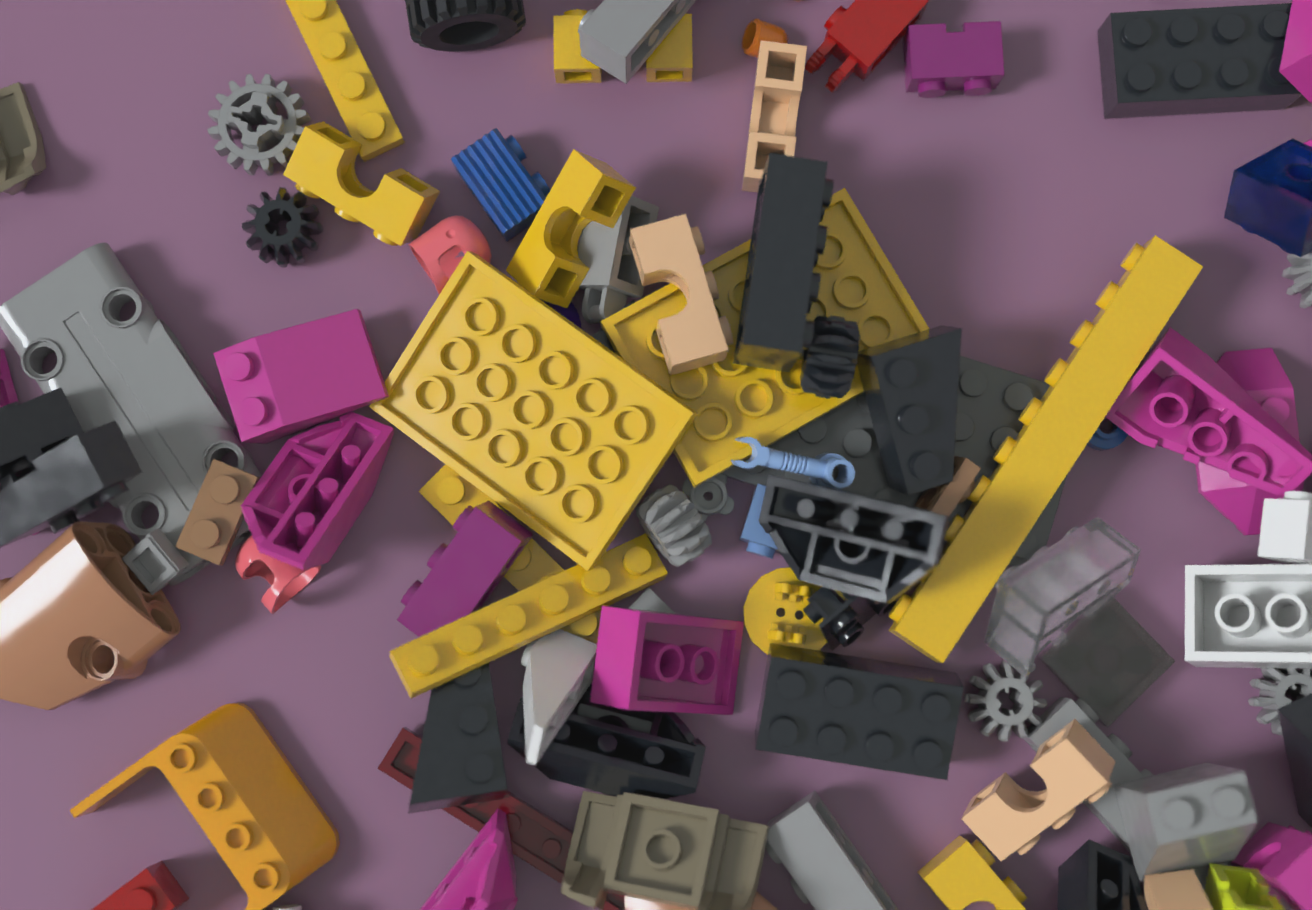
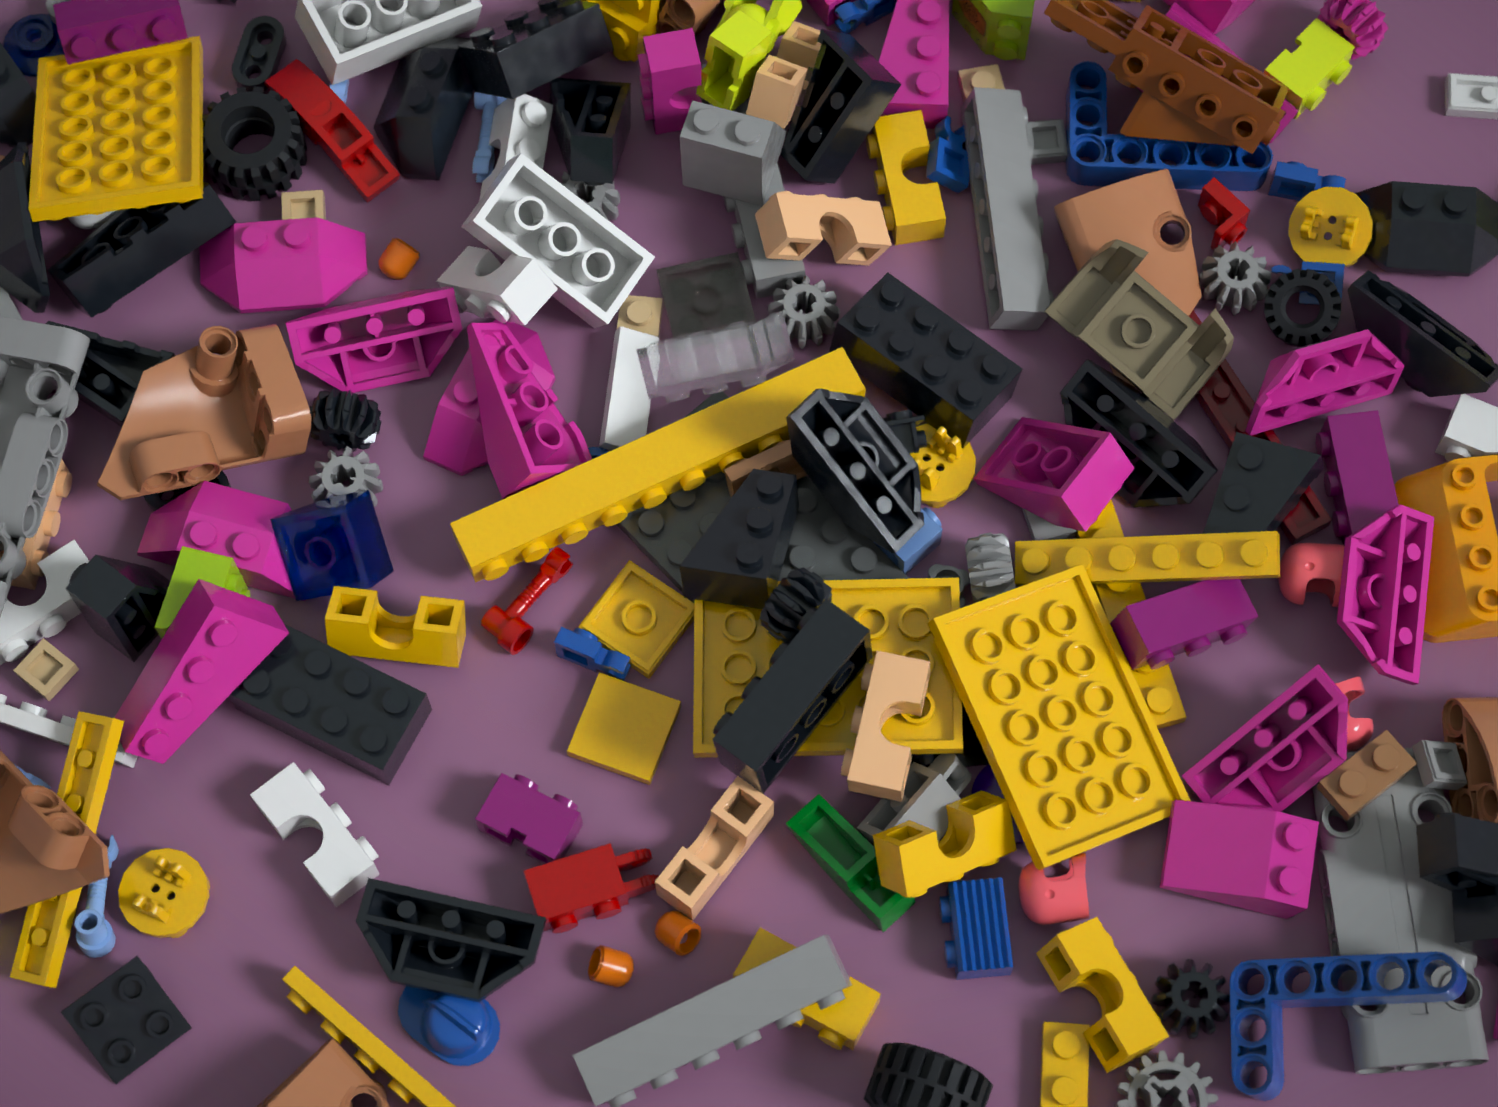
camera: 150 degrees left, 15 degrees down
(158, 280) = (1321, 992): none -> blue beam
(283, 709) = (1387, 590): none -> dark pink wedge
(369, 705) = (1311, 569): none -> coral helmet
(371, 828) = (1356, 470): none -> magenta brick
(554, 681) = (1161, 493): white slope -> none
(661, 181) = (848, 861): none -> green slope
(817, 468) = (843, 543): light blue brick -> none
(922, 194) = (624, 728): none -> yellow tile
(977, 297) = (639, 618): none -> yellow tile
(1004, 240) = (584, 650): none -> blue plate
(1088, 228) = (508, 625): none -> red brick
(1114, 500) = (626, 396): none -> white tile
(1158, 605) = (641, 314): none -> tan plate
(1207, 145) = (364, 629): none -> yellow arch

